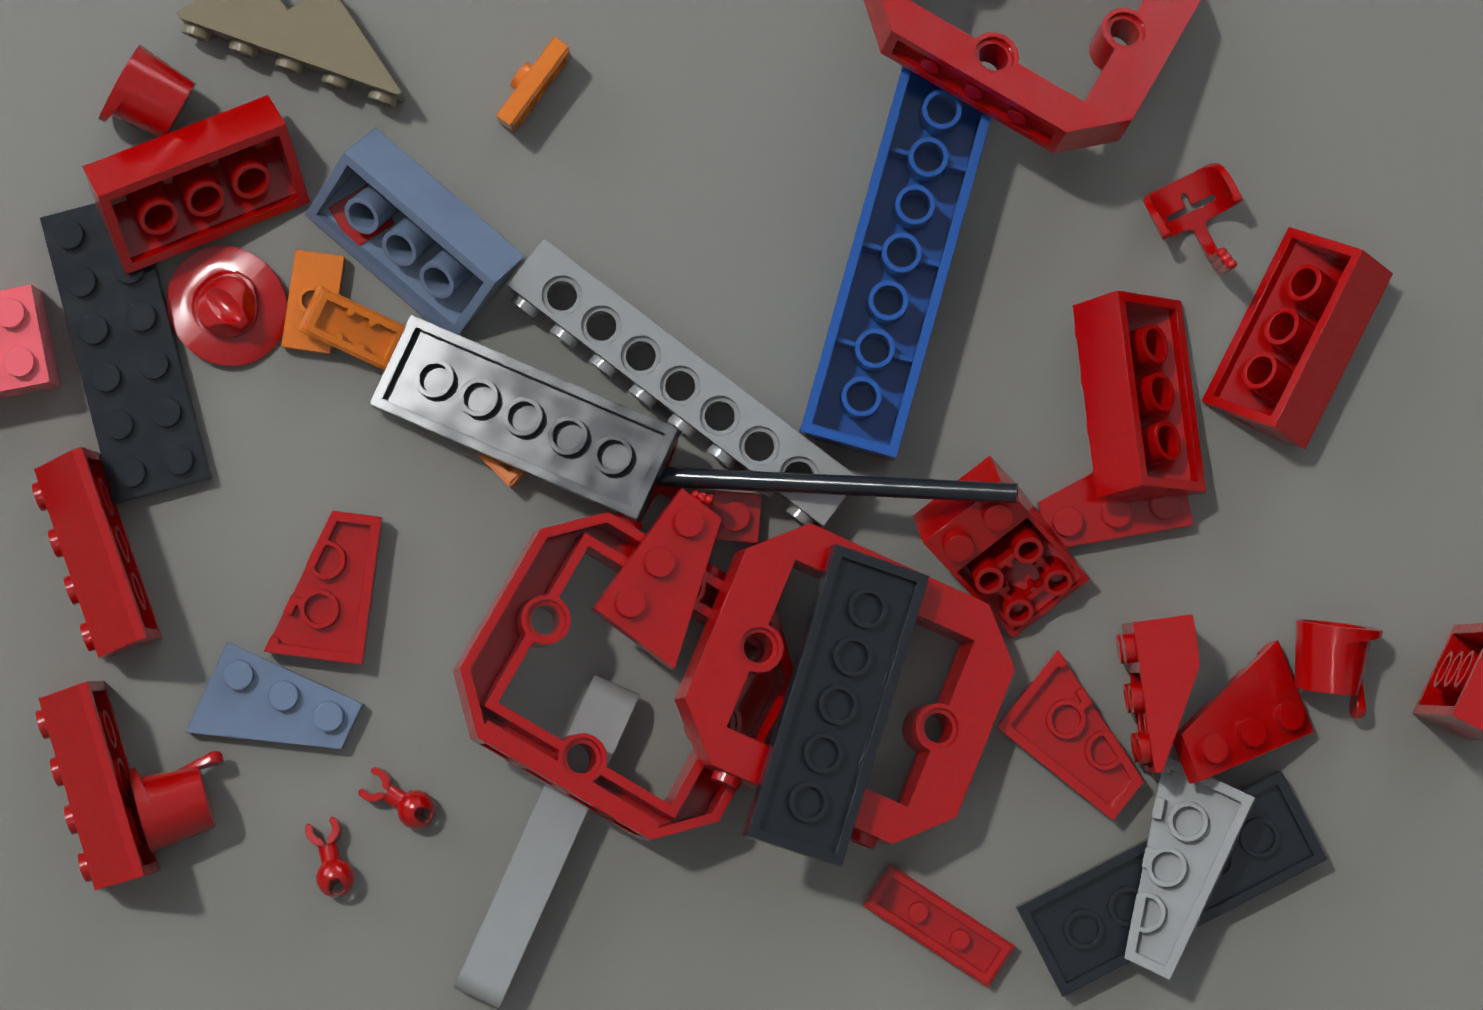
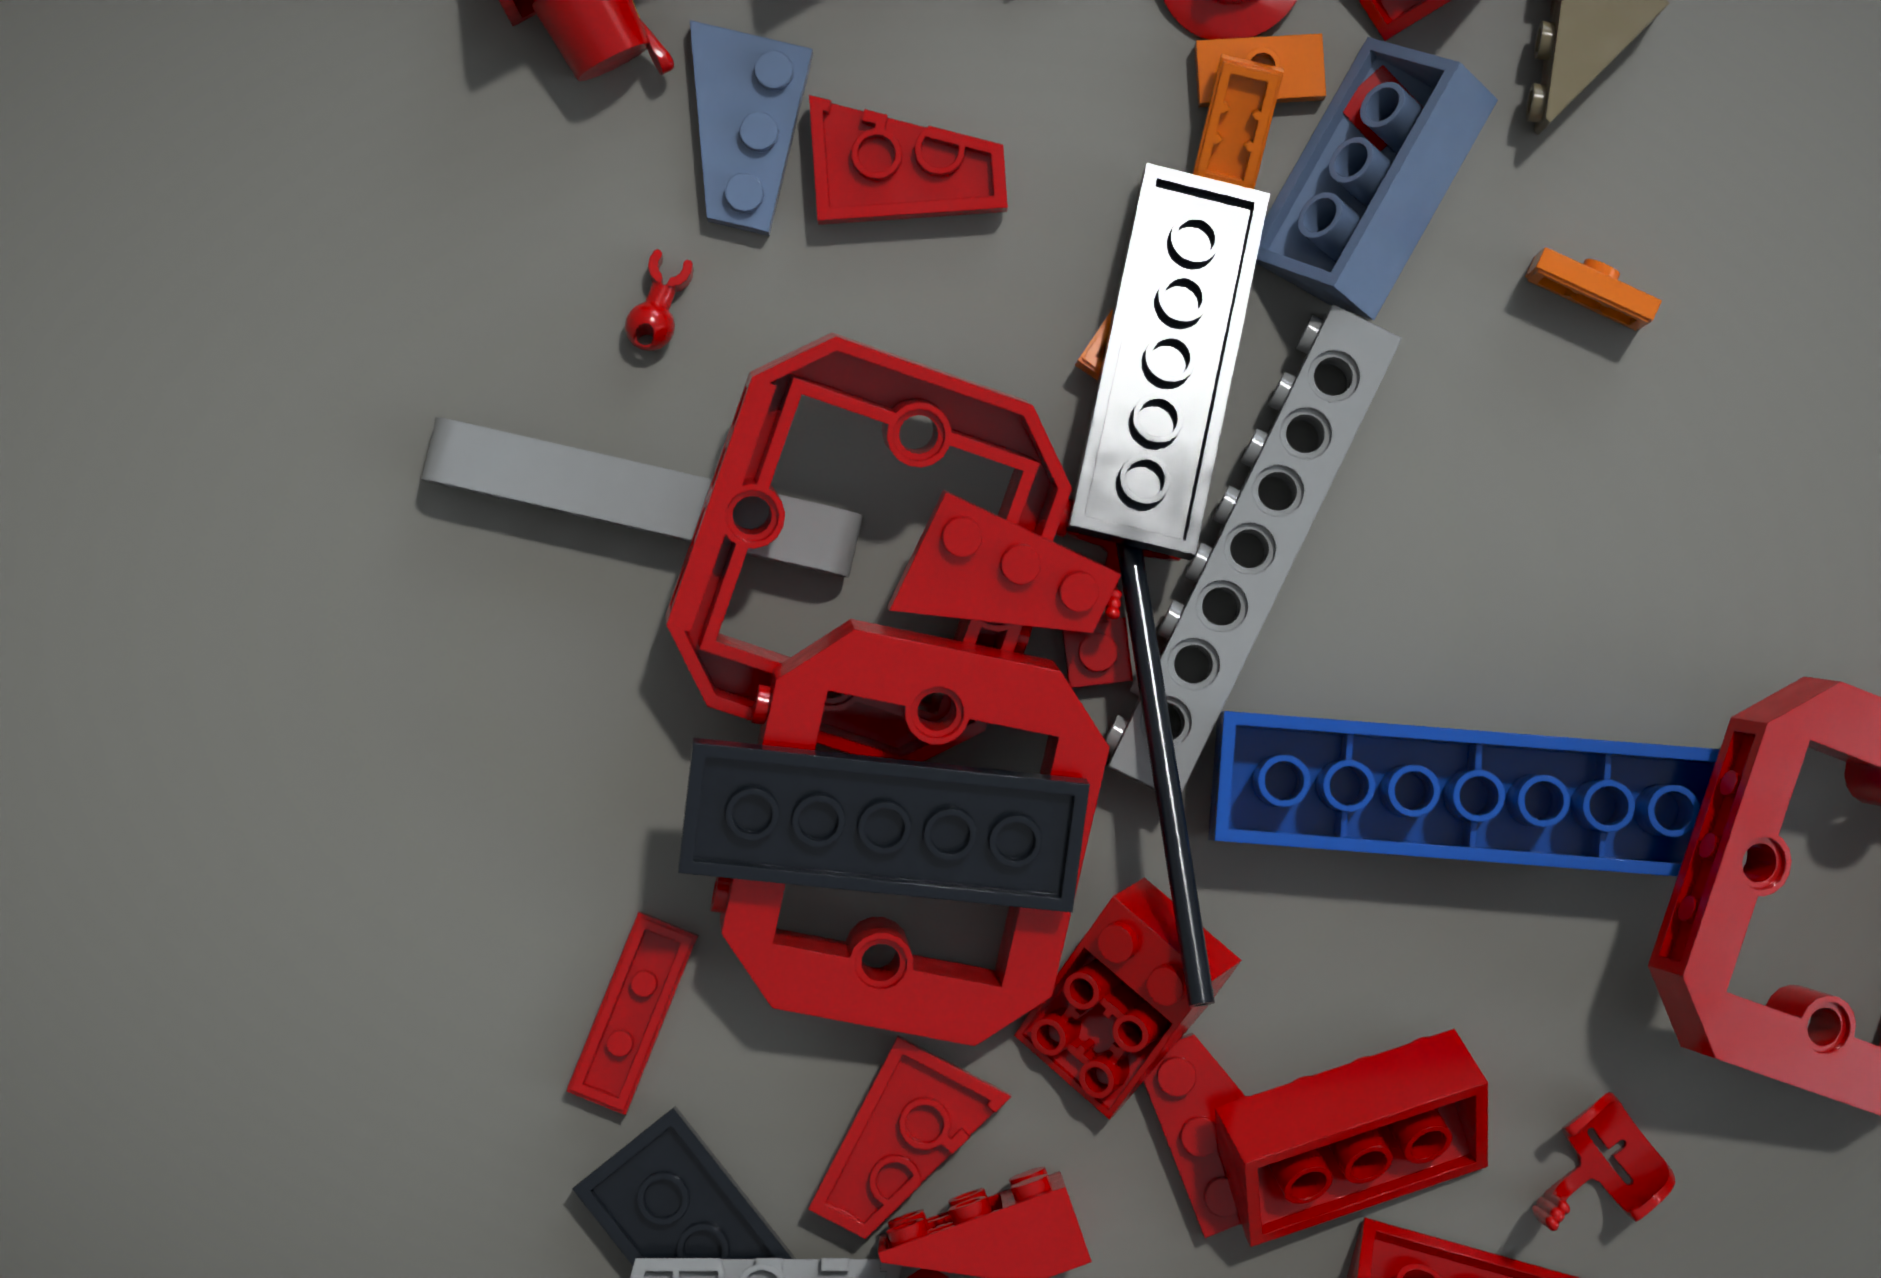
camera: 80 degrees right, 0 degrees up
(333, 867) = (556, 237): red arm -> none

